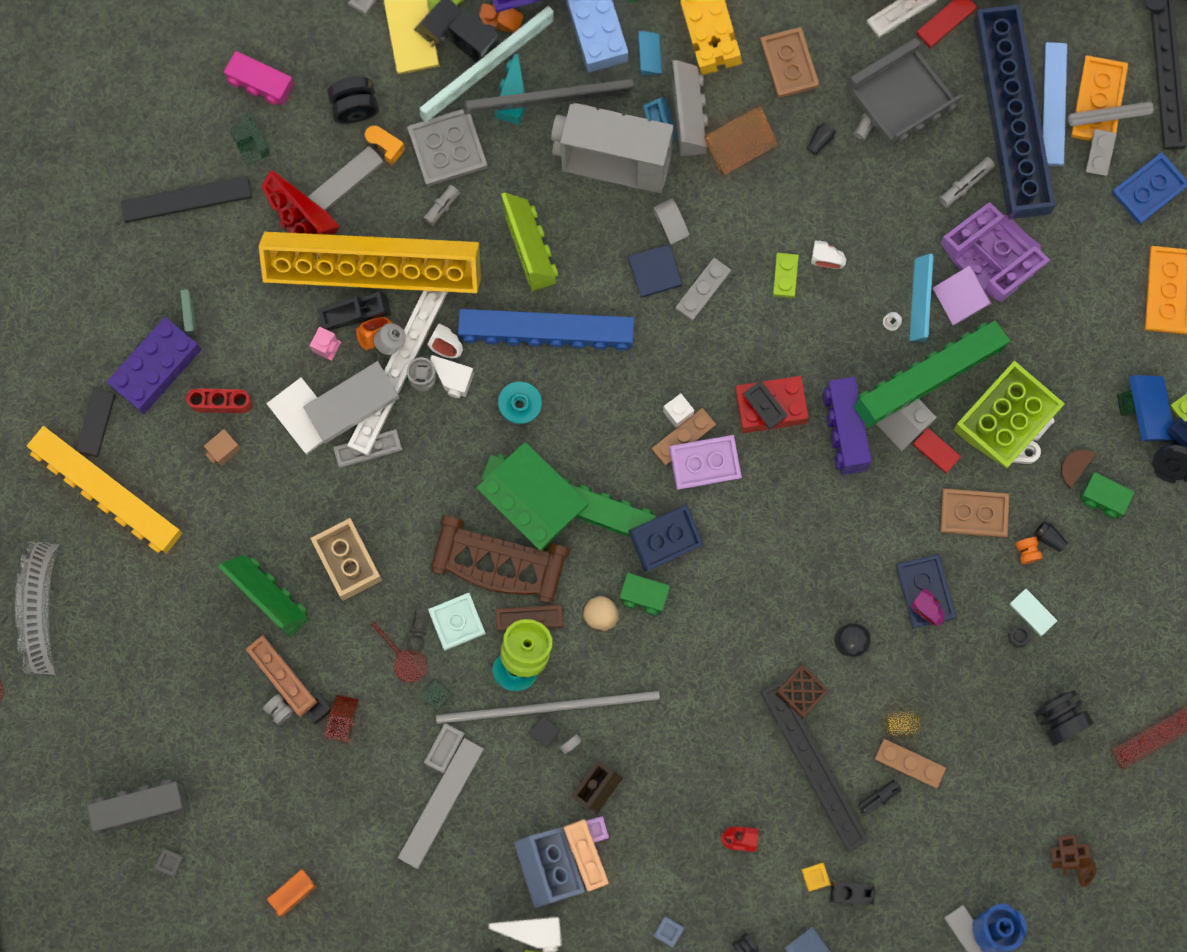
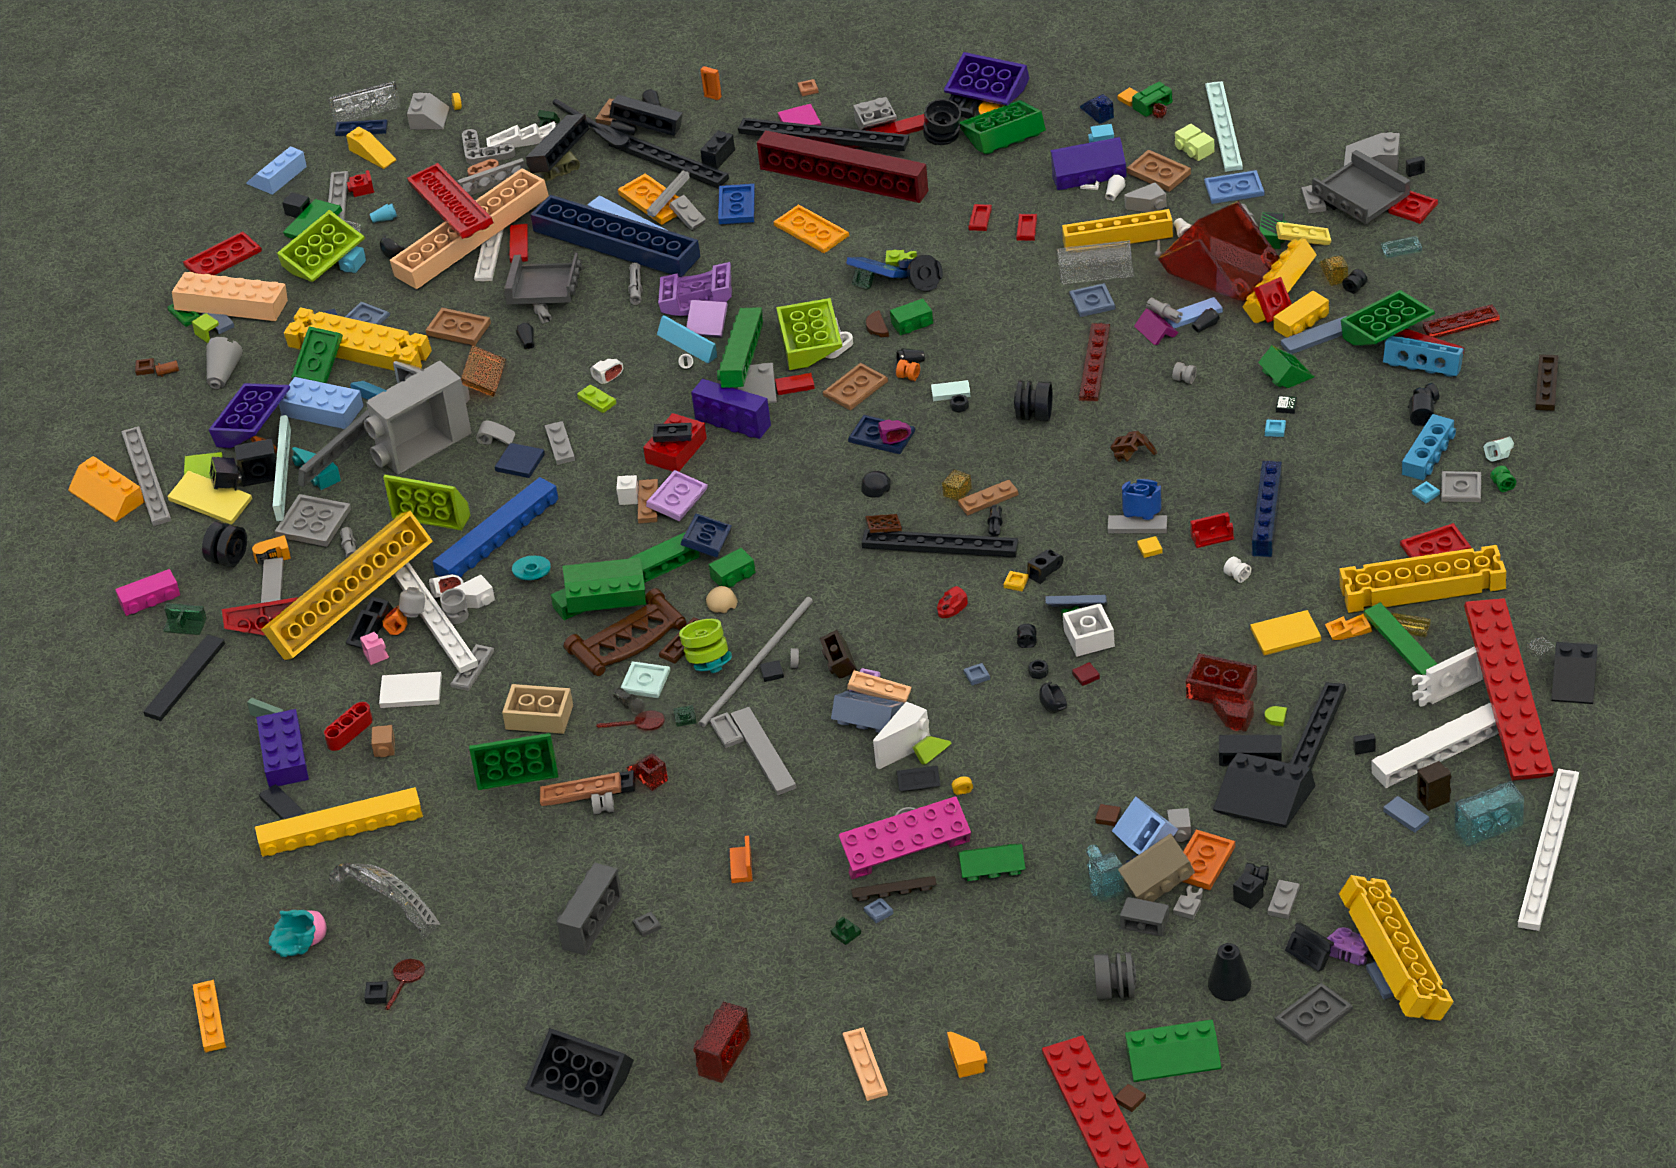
camera: 50 degrees left, 35 degrees down
(351, 402) = (431, 650): light grey tile -> none

